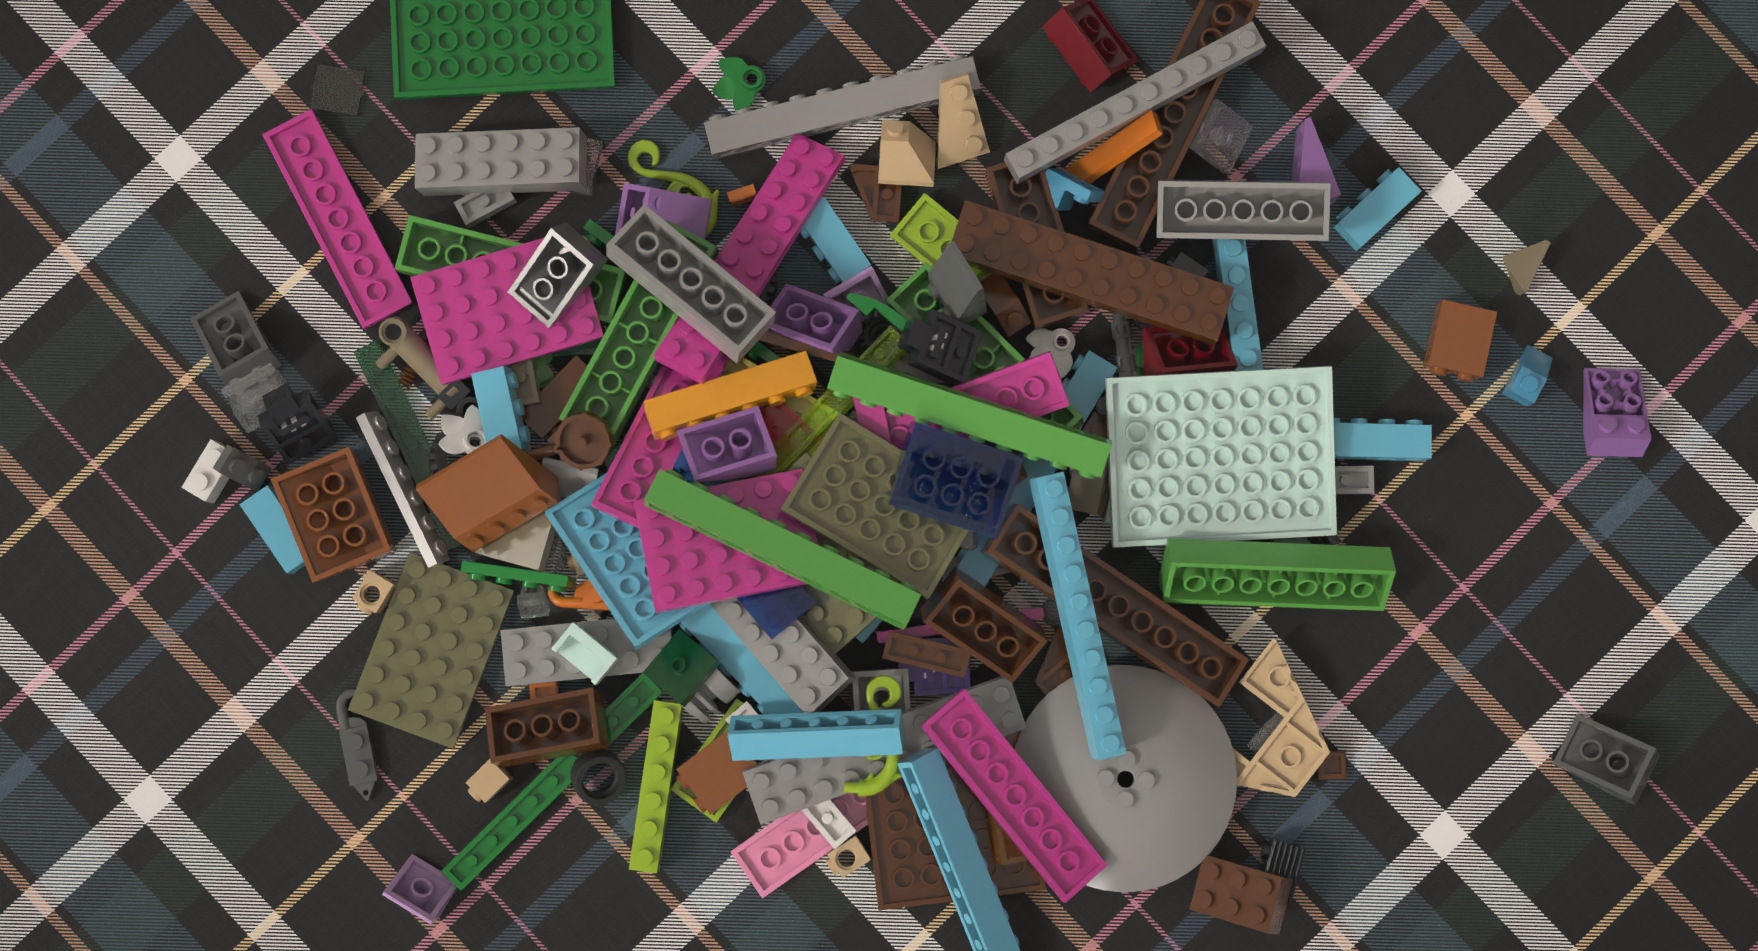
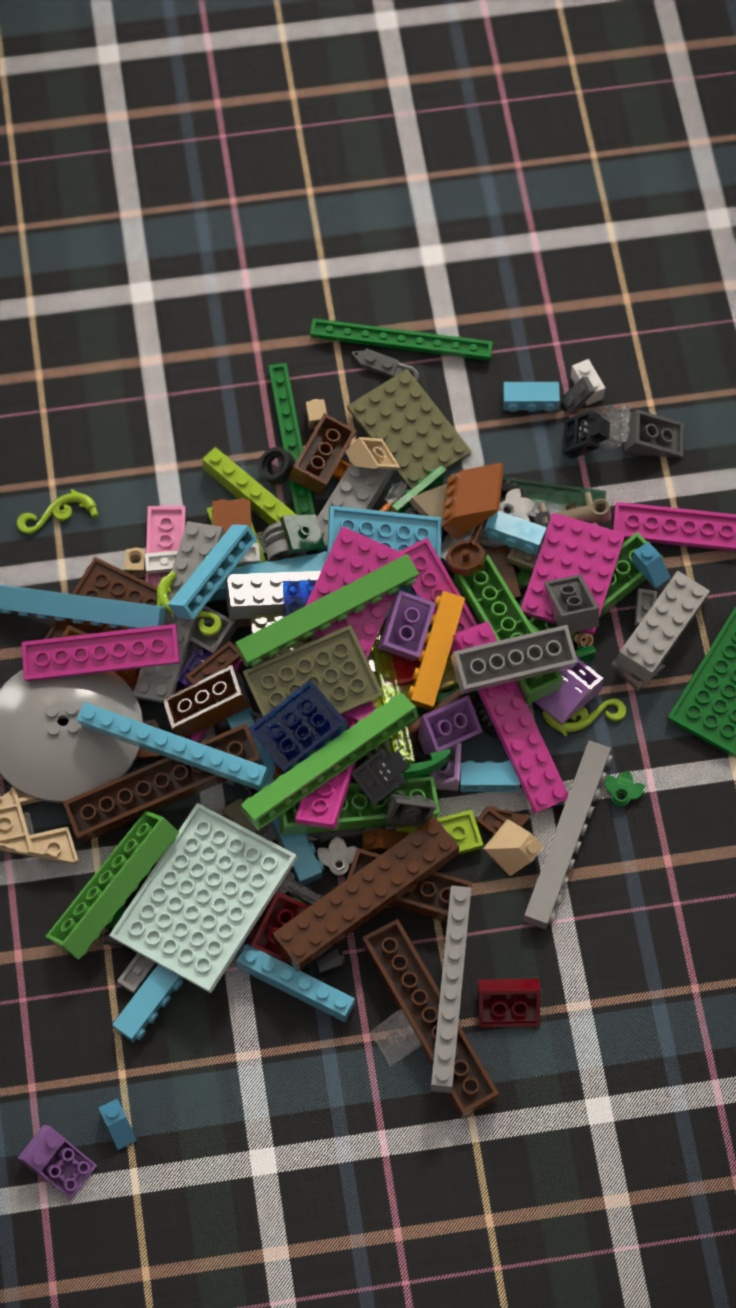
camera: 125 degrees right, 20 degrees down
(306, 750) = (401, 339): none -> green plate
(333, 514) = (519, 424): dark orange slope -> none
(386, 590) = (462, 427): tan brick -> none
(402, 487) = (513, 467): light grey plate -> none
(421, 889) = (283, 345): lavender slope -> none
(434, 218) = (651, 565): none -> dark azure slope
(514, 656) = (371, 454): none -> tan slope
(585, 652) = (348, 494): light aqua panel -> none
(742, 195) = (553, 744): orange tile -> none
(960, 125) = (511, 891): tan wing -> none
(1067, 188) = (426, 922): dark azure slope -> none
(1117, 148) = (431, 962): orange tile -> none
(1243, 210) = (339, 1003): light grey brick -> none
(1310, 159) = (334, 1073): medium lavender slope -> none
(1376, 208) = (286, 1103): medium azure brick -> none
(1459, 340) = (169, 1096): dark orange brick -> none
(1524, 264) = (187, 1171): dark tan slope -> none

